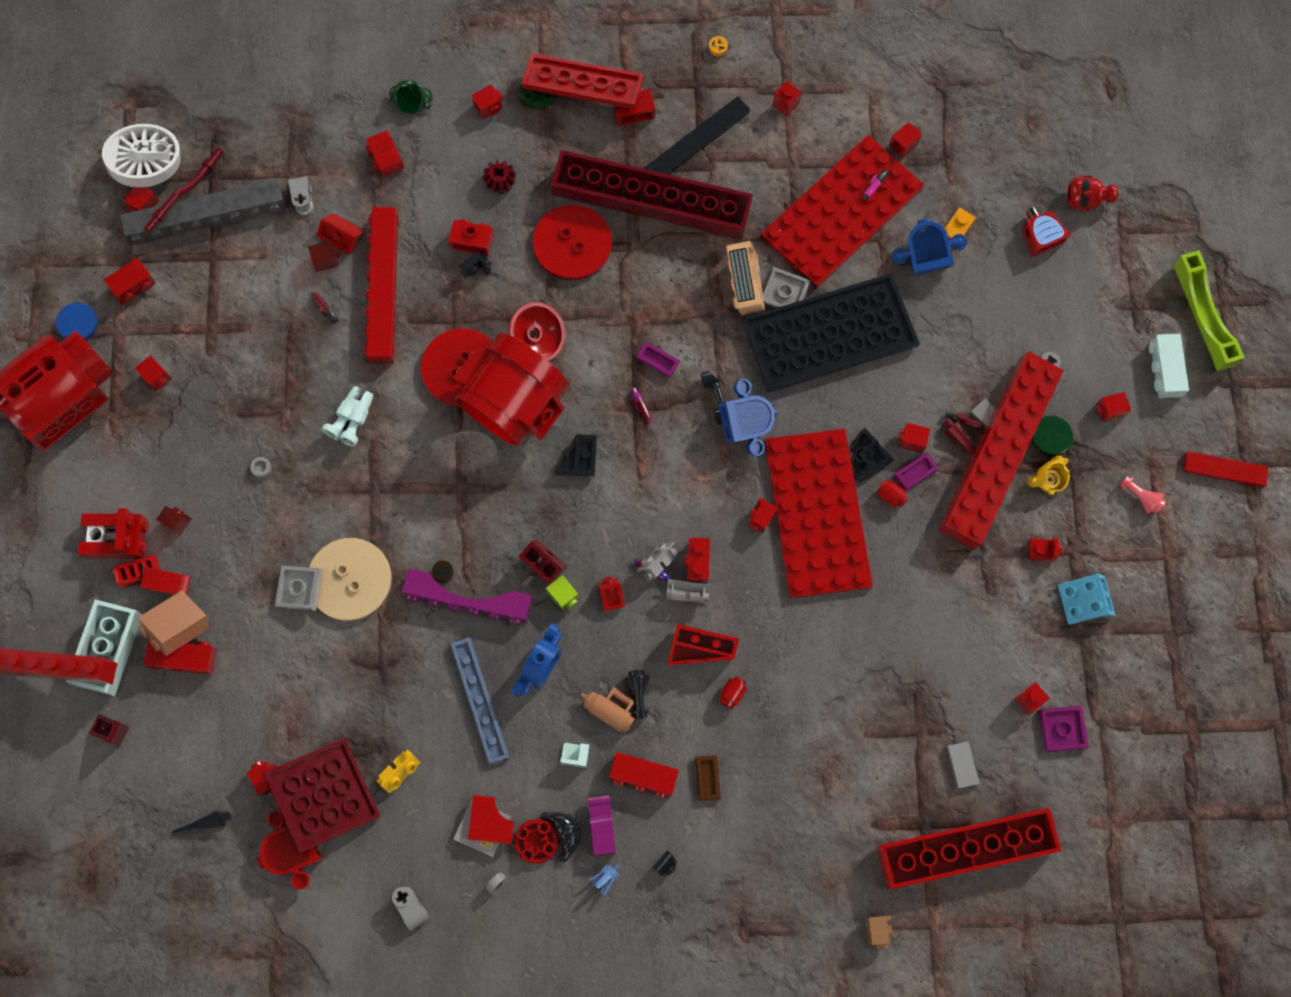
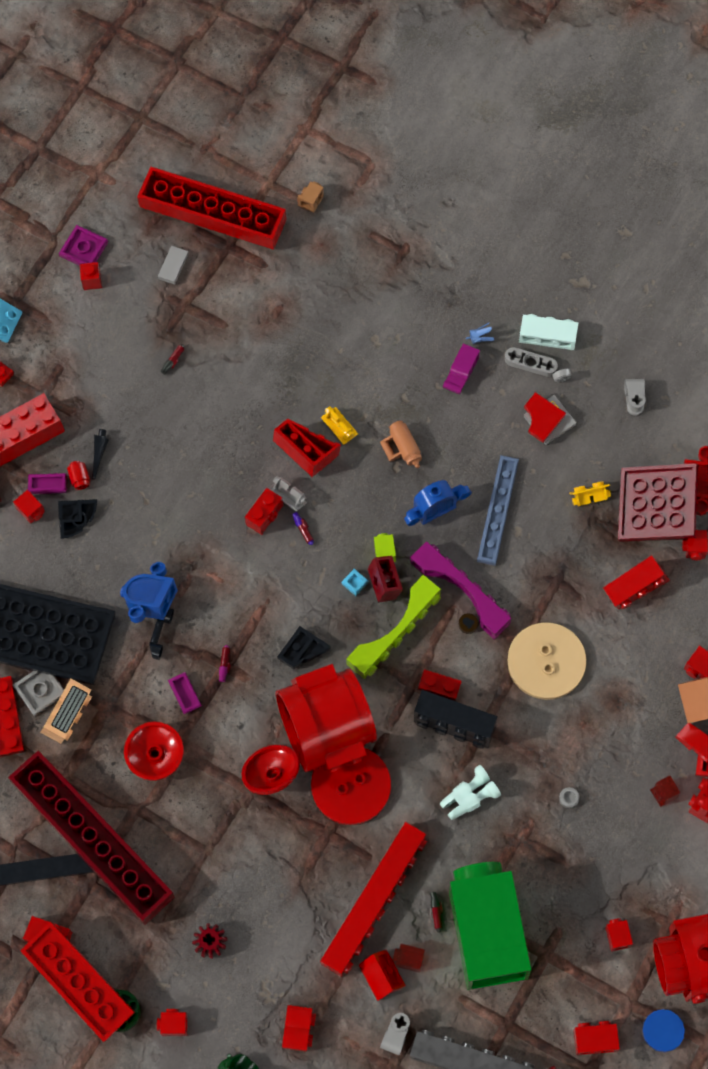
camera: 140 degrees left, 5 degrees down
(265, 305) = (488, 926): none -> green container
(298, 588) = (591, 675): light grey tile -> none
(300, 700) = (636, 583): none -> red wedge
(398, 468) = (455, 719): none -> black brick
(435, 499) = (439, 684): none -> red plate
(471, 237) = (270, 896): red brick -> none
(473, 264) = (287, 868): black bracket -> none
(516, 483) = (367, 656): none -> lime arch
(522, 890) = (534, 369): none -> light grey beam
(536, 841) = (515, 388): red tile -> none
(537, 925) = (548, 332): none -> light aqua brick
(566, 830) = (488, 383): black piece -> none
(571, 548) = (355, 582): none -> medium azure tile
(572, 242) = (186, 841): red plate -> none
(575, 755) = (450, 428): light aqua panel -> none
(611, 593) = (346, 528): red bracket -> none
(637, 682) = (370, 452): black piece -> none
(643, 775) = (408, 385): red brick -> none
(647, 279) = (153, 738): none -> red dish
(651, 564) = (290, 532): light grey hinge -> none
(666, 864) = (431, 318): black plate -> none
(685, 693) = (339, 425): none -> yellow hinge
(708, 778) = (362, 360): reddish brown tile -> none
(732, 692) = (304, 404): red brick -> none
(761, 516) = (191, 516): red brick -> none
(818, 513) = (145, 498): red plate -> none
(889, 661) = (173, 360): none -> piece
(895, 535) = (100, 444): none -> black piece

